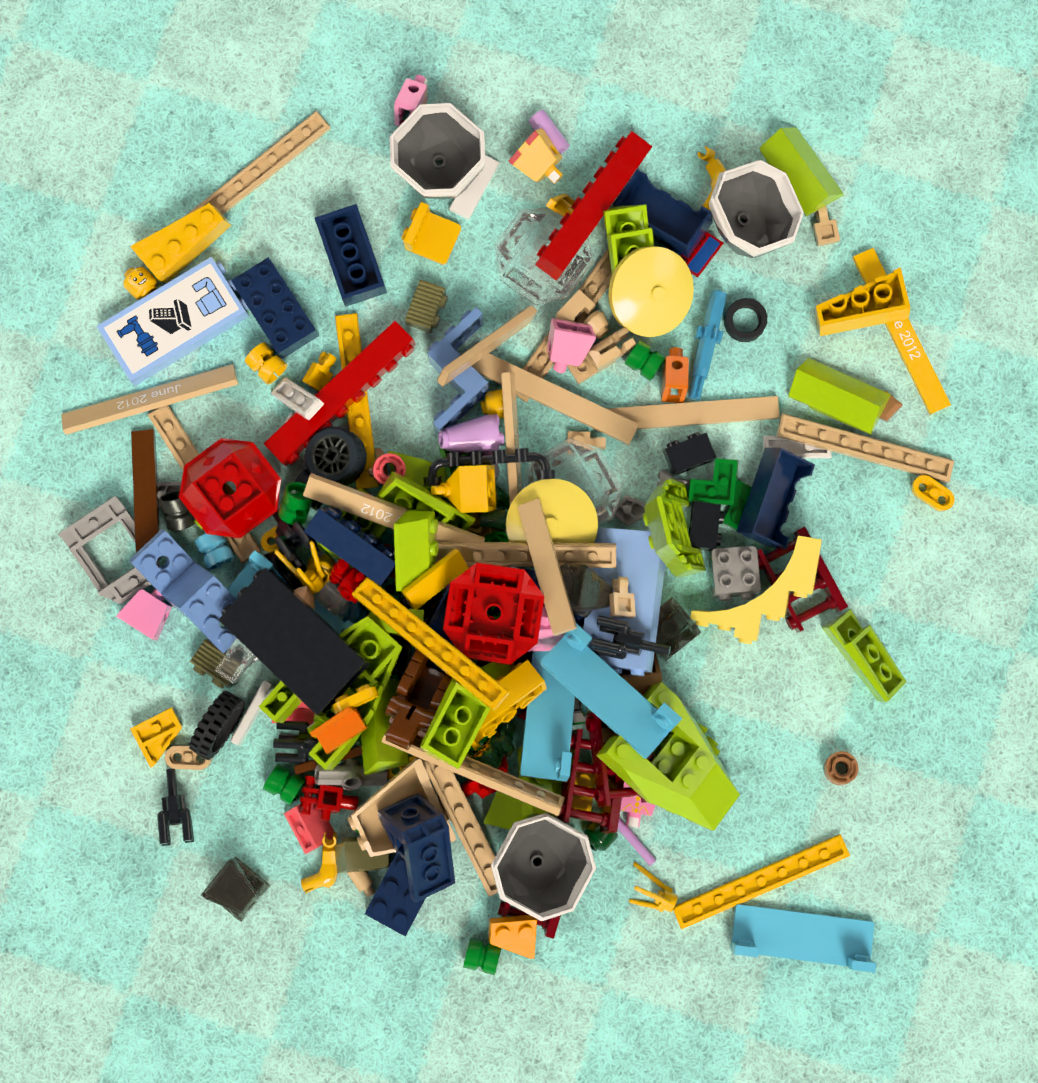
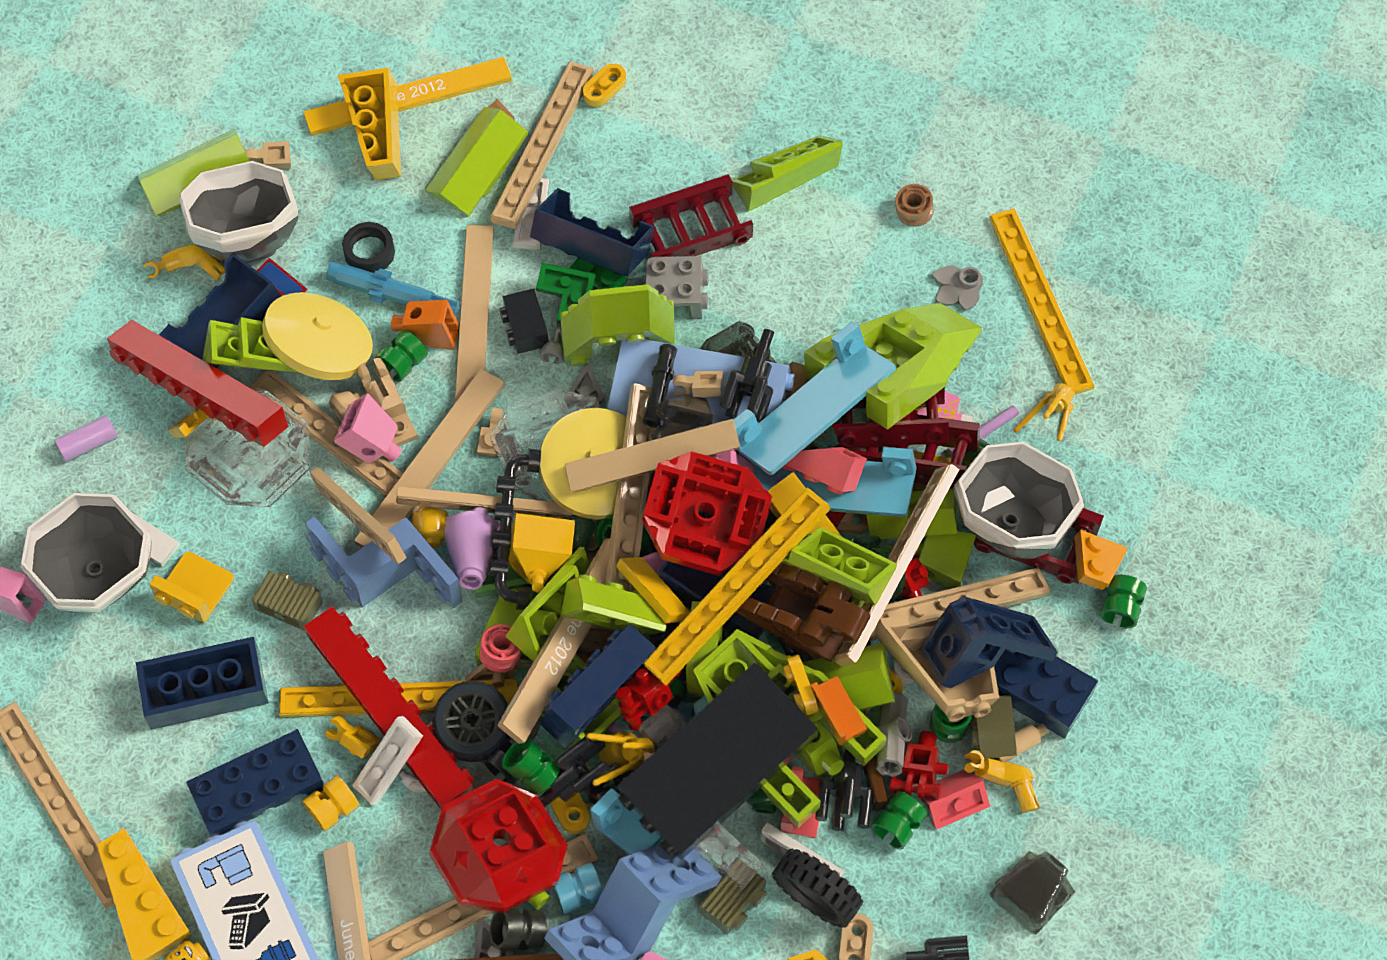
camera: 85 degrees left, 20 degrees down
(538, 158) = (118, 448): yellow torso -> none
(556, 711) = (832, 466): none -> coral slope
(576, 307) = (322, 424): tan leg -> none
(623, 567) = (662, 375): none -> black pin
(747, 618) = (692, 214): light yellow arch -> none
(764, 807) = (955, 289): none -> light grey plate
(803, 937) = (1105, 264): medium azure bracket -> none

